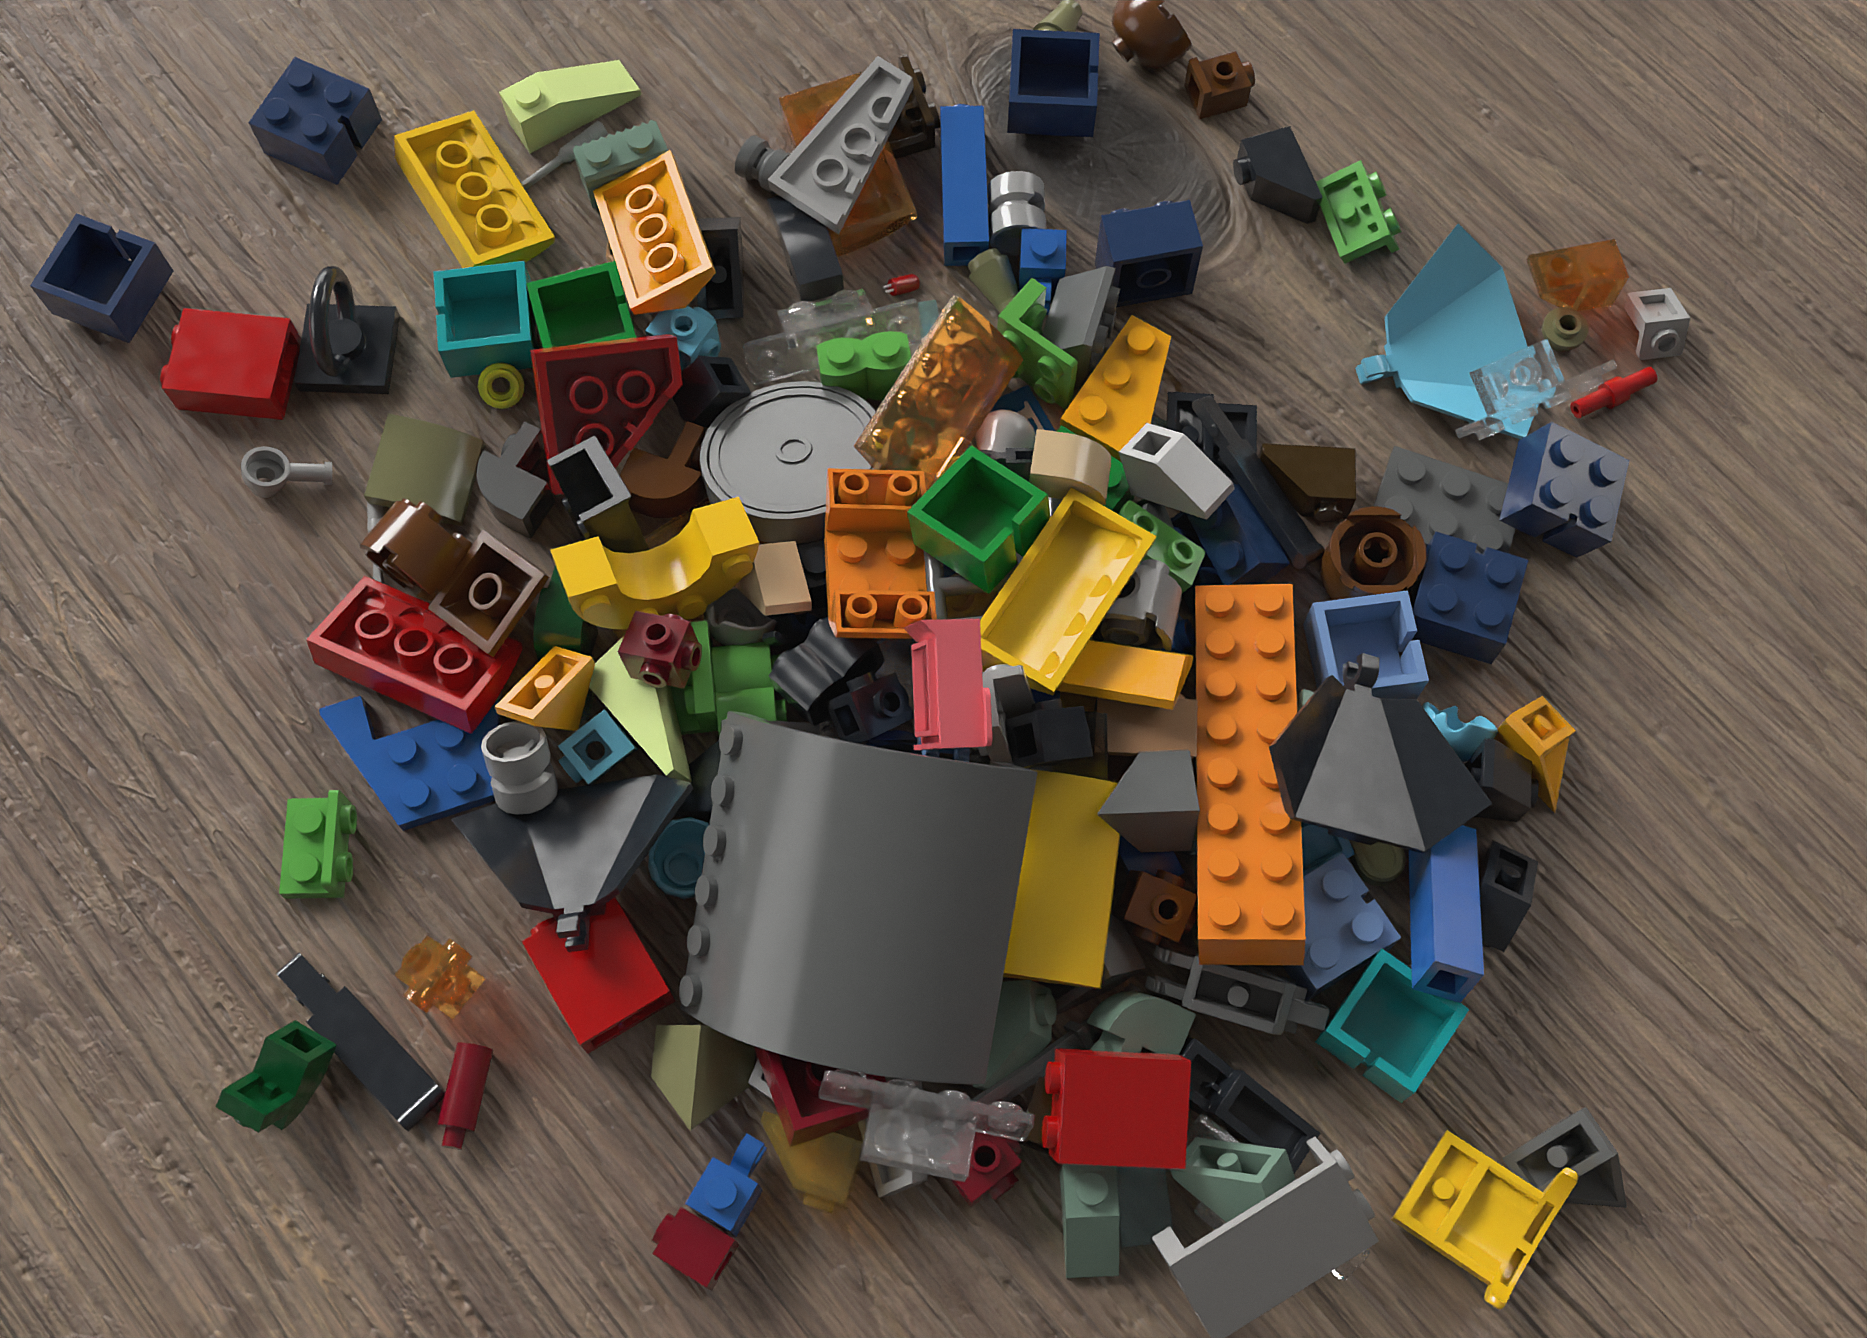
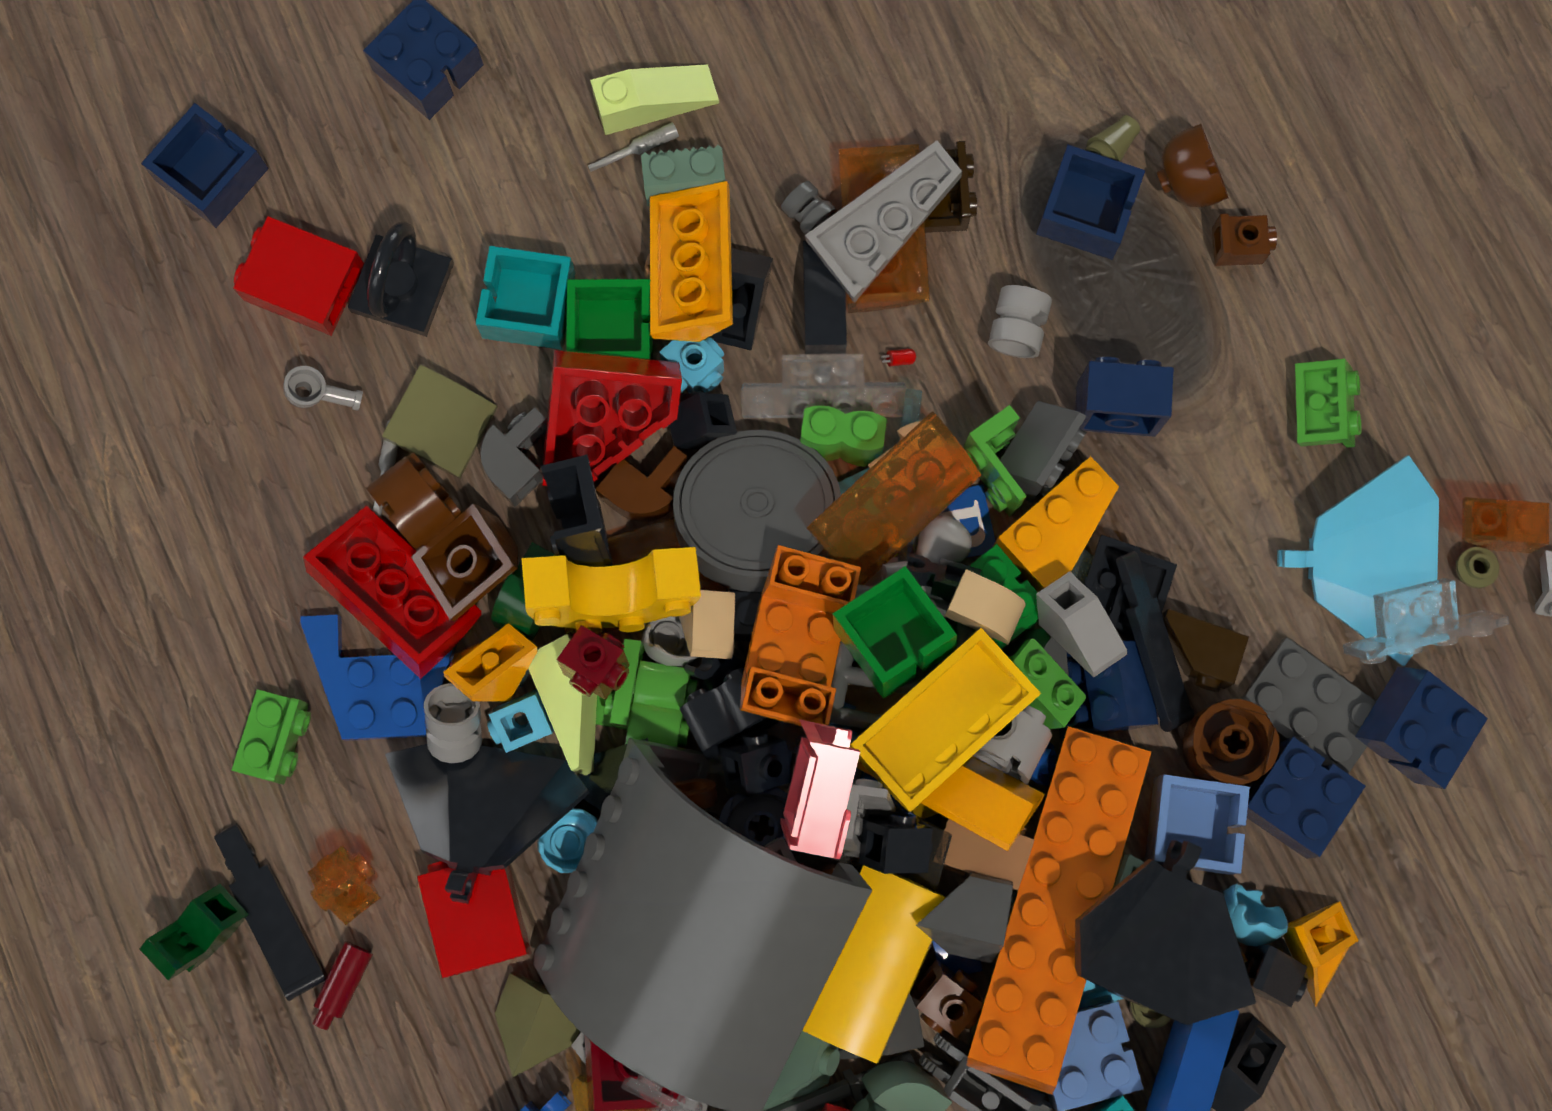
camera: 15 degrees right, 10 degrees up
(471, 192) = (544, 167): yellow slope -> none
(501, 399) = (521, 370): neon yellow plate -> none
(963, 183) = (981, 278): blue brick -> none
(994, 277) = (982, 379): olive cone -> none
(1043, 259) = (1027, 378): blue brick -> none
(1278, 174) = (1267, 346): black slope -> none
(1613, 392) = (1501, 641): red bar -> none

